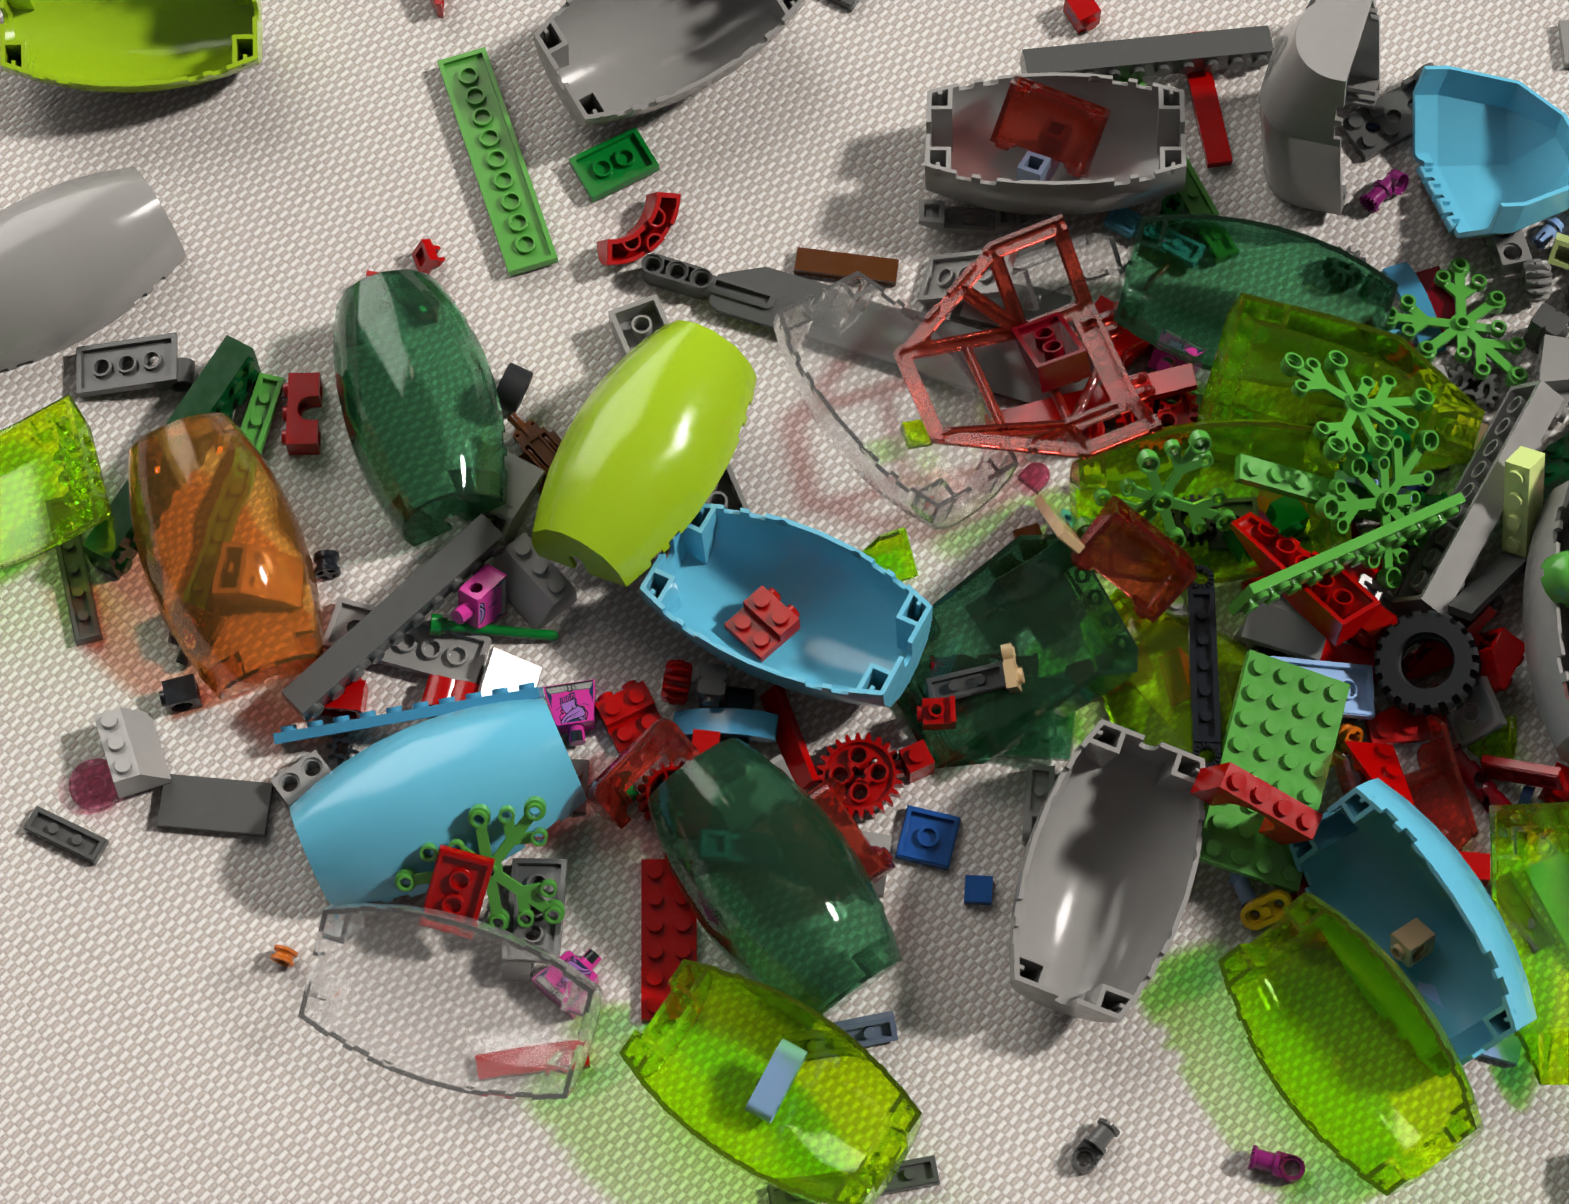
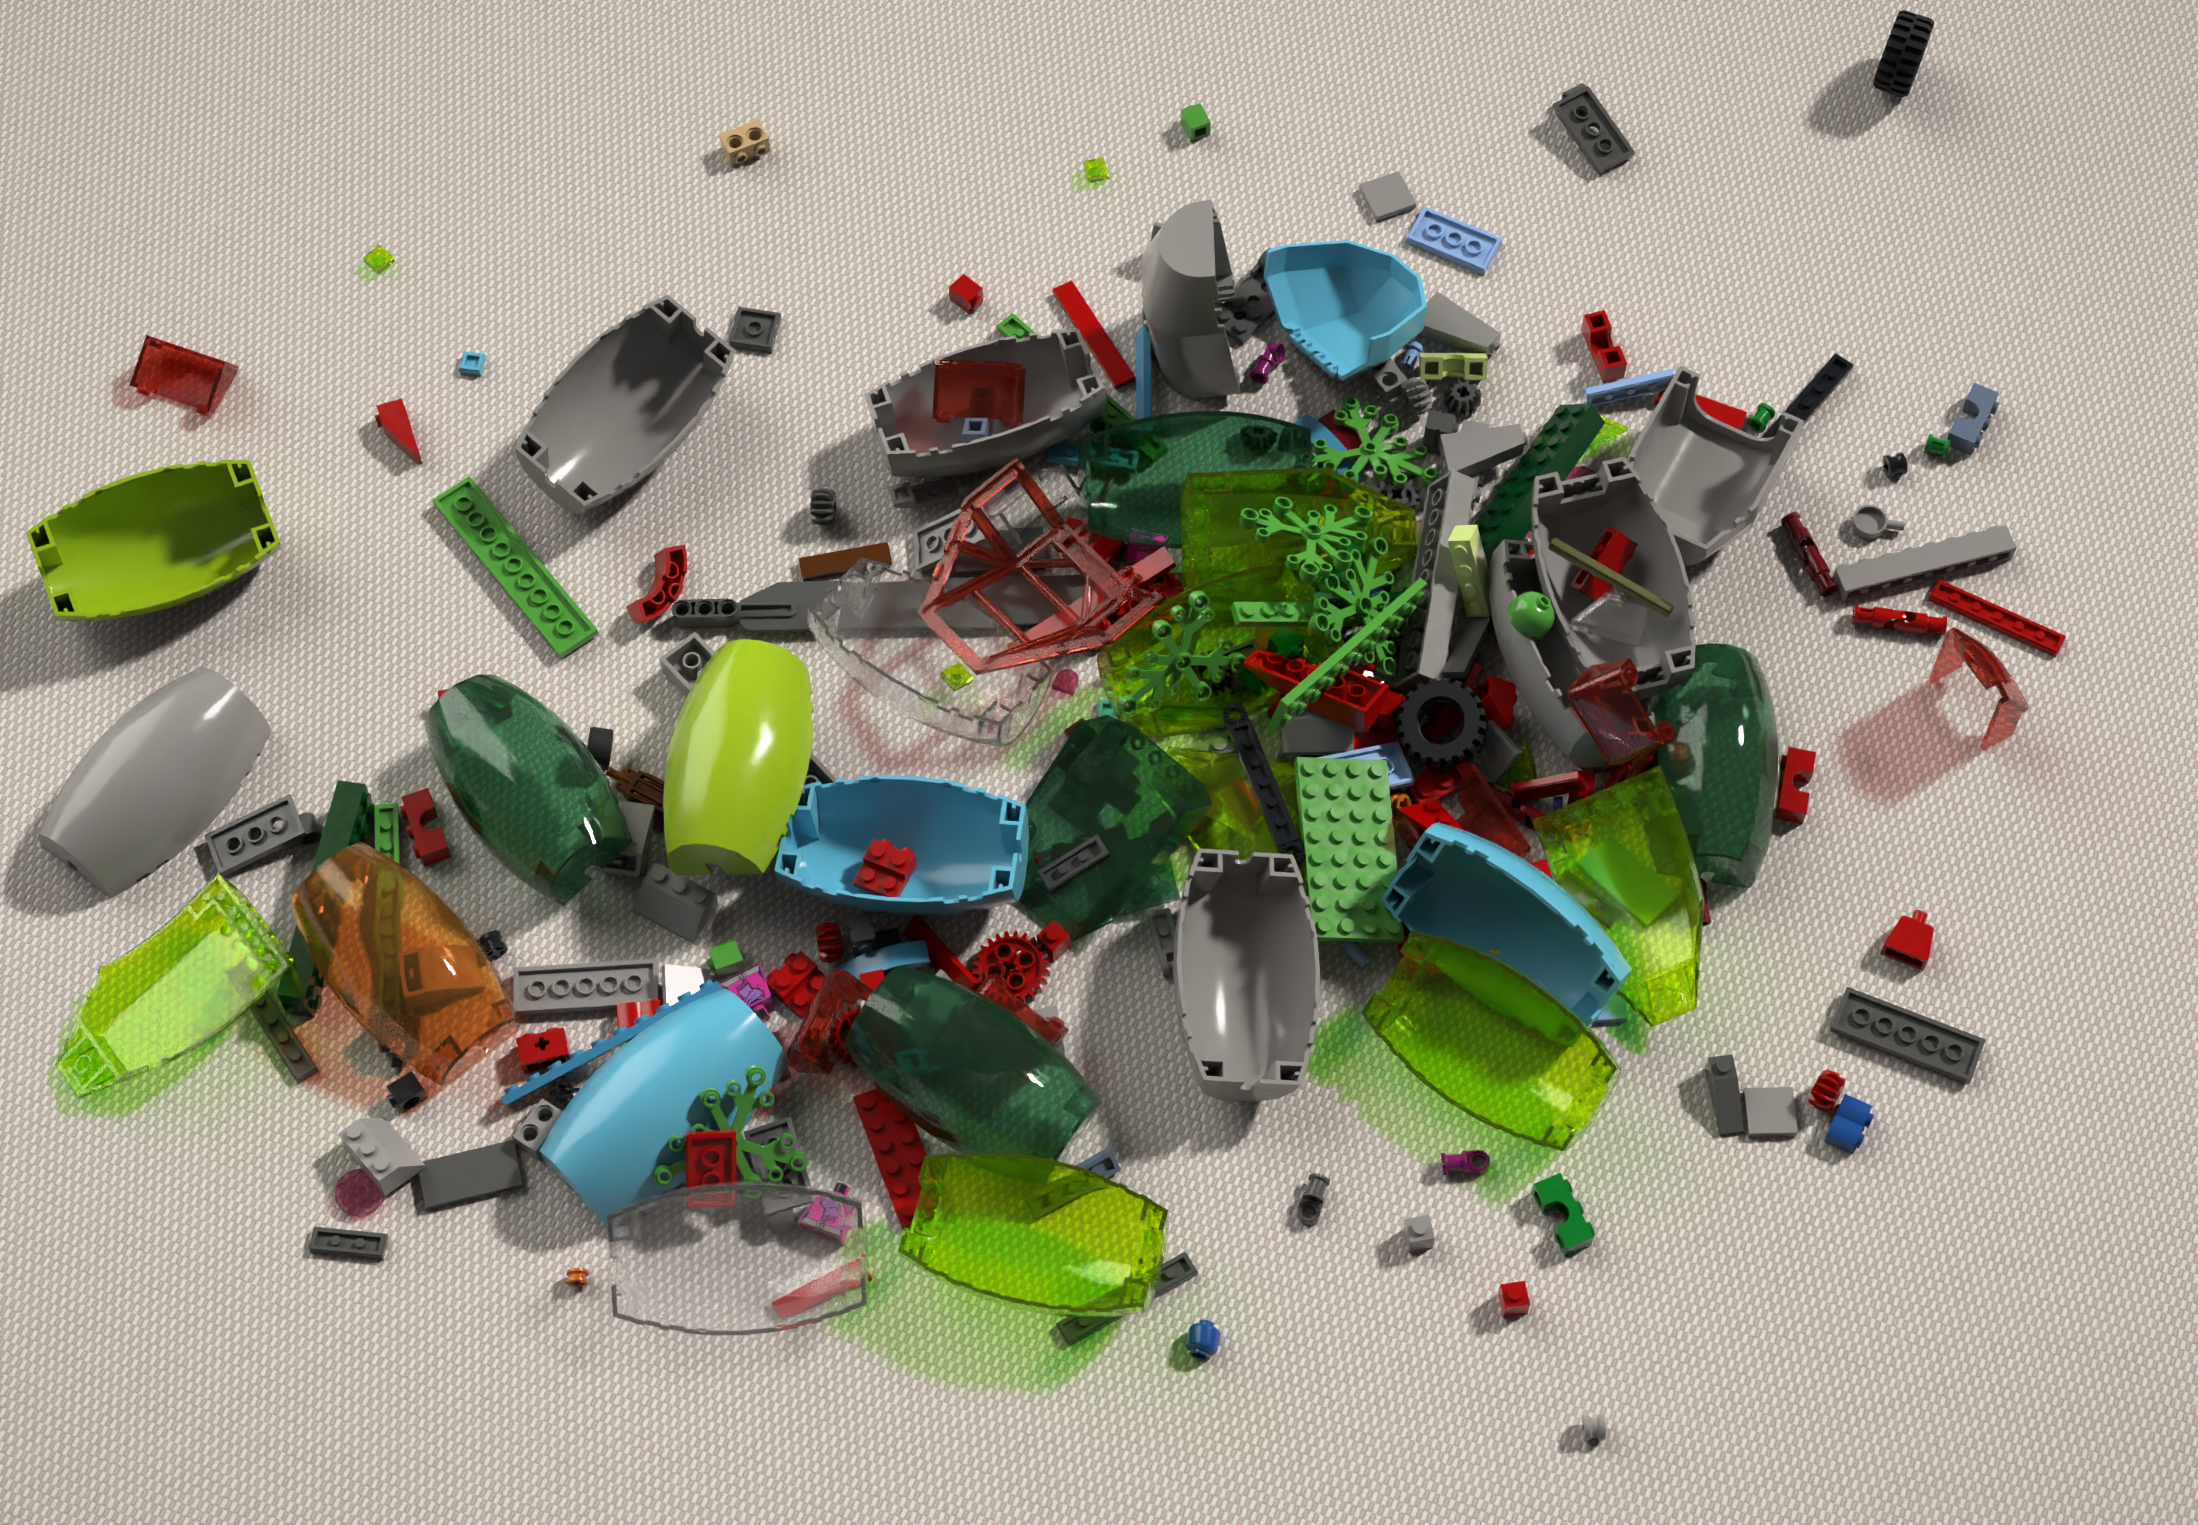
camera: 20 degrees left, 5 degrees down
(393, 618) = (570, 967): dark grey brick -> none
(426, 256) = (483, 663): red tile -> none
(441, 624) = (611, 961): green piece -> none
(482, 598) = (639, 926): dark pink torso -> none
(561, 663) = (725, 959): none -> bright green brick
(614, 164) = (616, 539): green plate -> none
(776, 1081) = (1034, 1234): light blue beam -> none
(843, 199) = (823, 507): none -> dark grey gear
(894, 553) = (974, 775): clear neon green slope -> none
(927, 838) = (1085, 1000): blue tile -> none
(943, 721) = (1064, 900): red brick -> none
(978, 890) = (1142, 1028): blue tile -> none
(1013, 675) = (1110, 842): tan plate -> none
(1052, 352) = (1047, 572): dark red slope -> none
(1059, 524) = (1103, 708): tan tile -> none
(1135, 558) = (1177, 715): clear red windscreen -> none
(1156, 54) = (1042, 309): dark grey brick -> none
(1240, 165) = (1143, 374): none -> dark azure tile
(1267, 907) = (1383, 962): yellow plate -> none
(1285, 817) = (1375, 878): red arch -> none
(1412, 942) = (1510, 947): tan brick -> none

